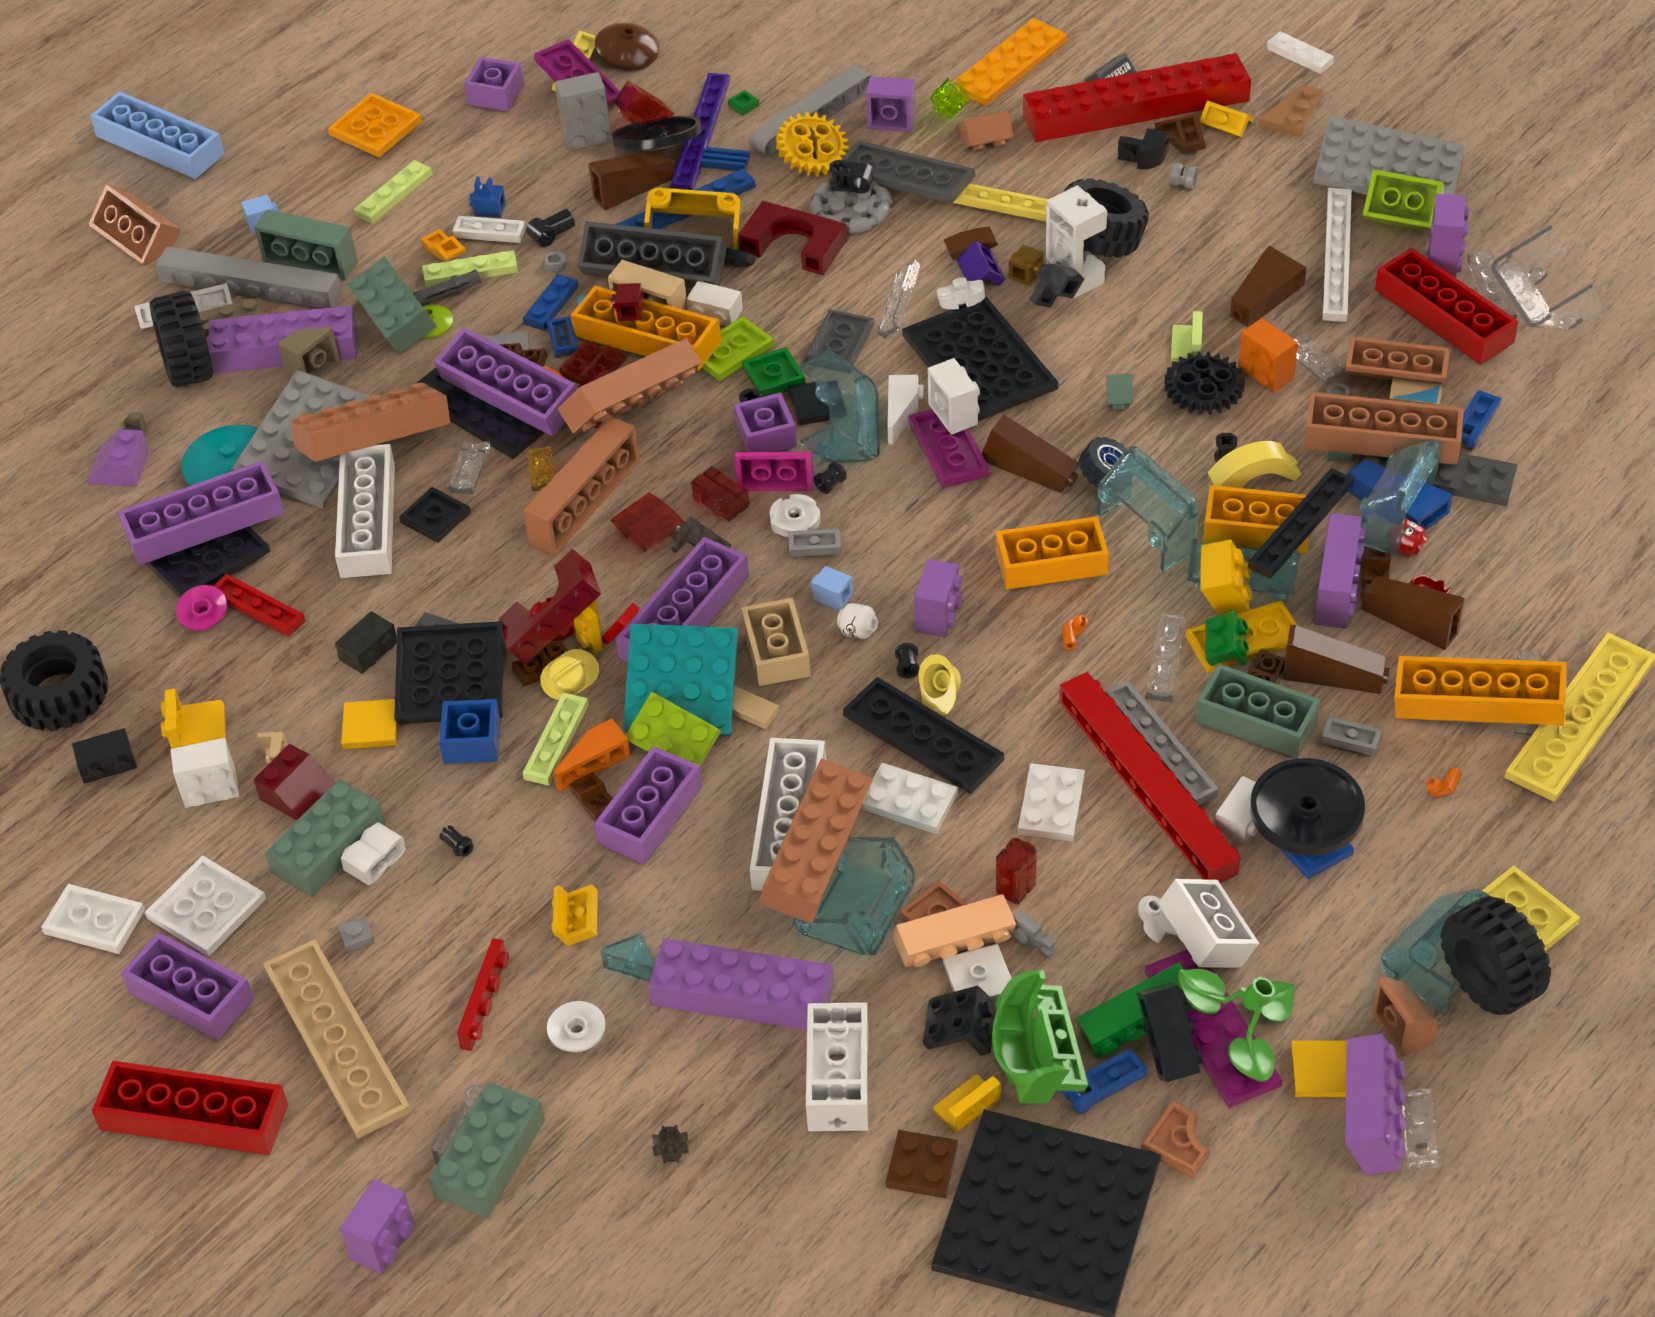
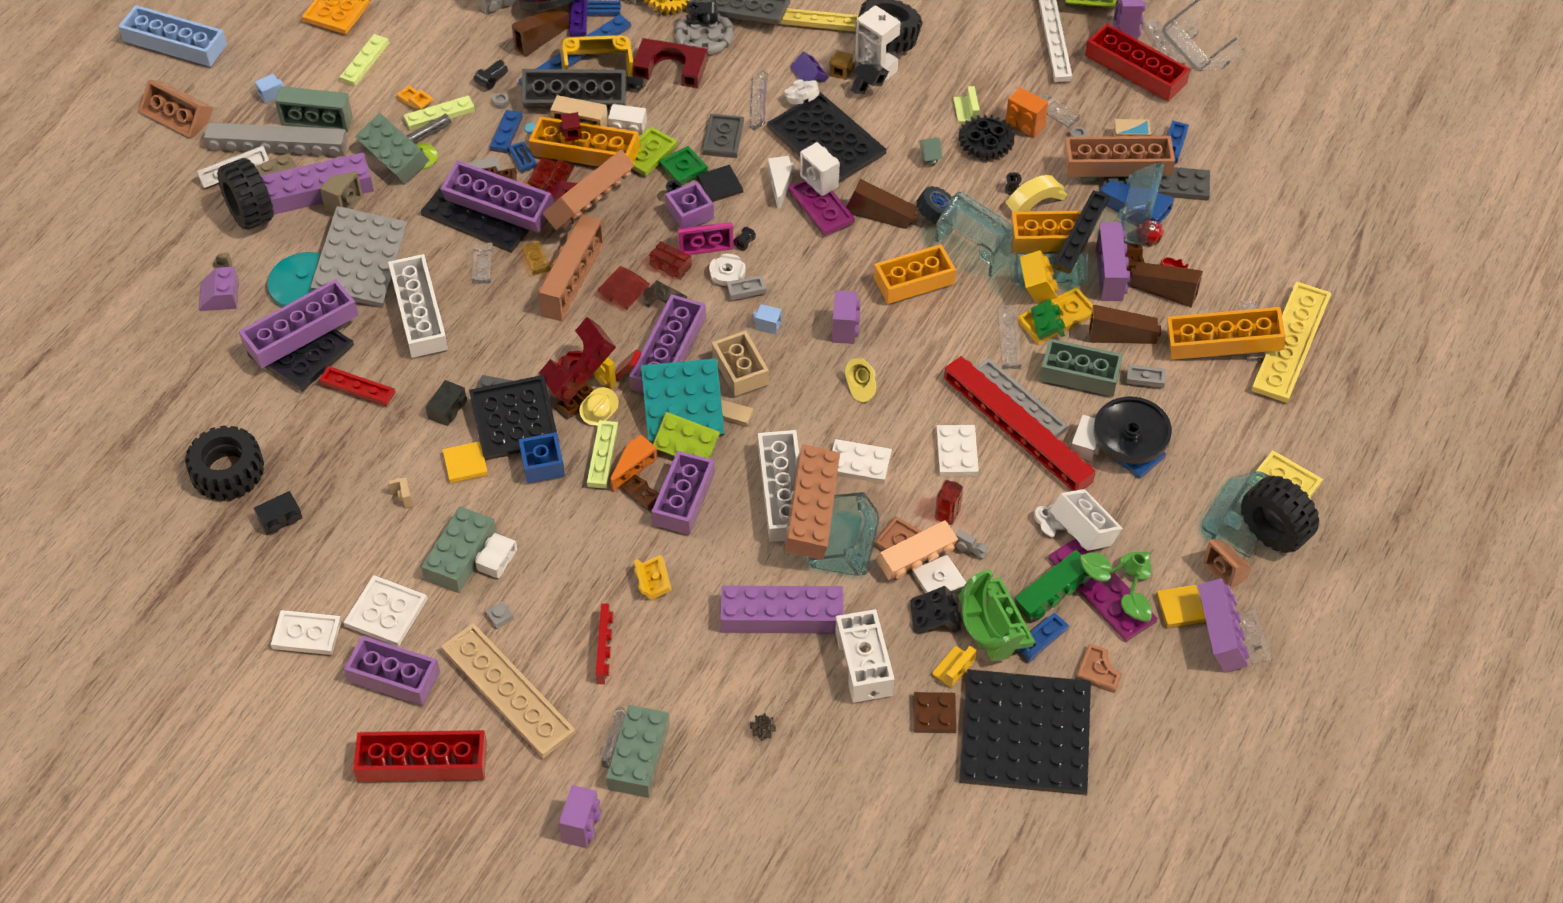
camera: 15 degrees left, 5 degrees up
(191, 722) = (336, 480): yellow bracket -> none
(201, 599) = (314, 387): dark pink dish -> none
(204, 772) = (359, 515): white brick -> none
(292, 782) = (424, 513): dark red slope -> none
(369, 421) = (404, 239): nougat brick -> none
(434, 514) = (467, 301): black tile -> none
(460, 844) = (557, 540): black pin -> none
(487, 199) = (438, 58): blue brick -> none
(489, 229) = (445, 81): white plate -> none
(574, 1017) = (672, 649): white dish -> none
(629, 957) = (701, 602): clear light blue slope -> none
(852, 410) = (747, 188): clear light blue windscreen -> none
(857, 621) = (792, 340): white head -> none
(907, 662) = (833, 363): black bush -> none
(923, 735) = (858, 415): black plate -> none
(960, 242) = (791, 53): reddish brown slope -> none
(1072, 629) = (940, 326): orange arm -> none
(1169, 1032) = (1080, 597): black brick -> none
(1266, 286) = (1012, 61): reddish brown slope -> none
(1267, 666) = (1078, 335): reddish brown slope -> none
(1396, 360) = (1115, 106): nougat slope -> none
(1447, 786) = (1215, 402): orange arm -> none

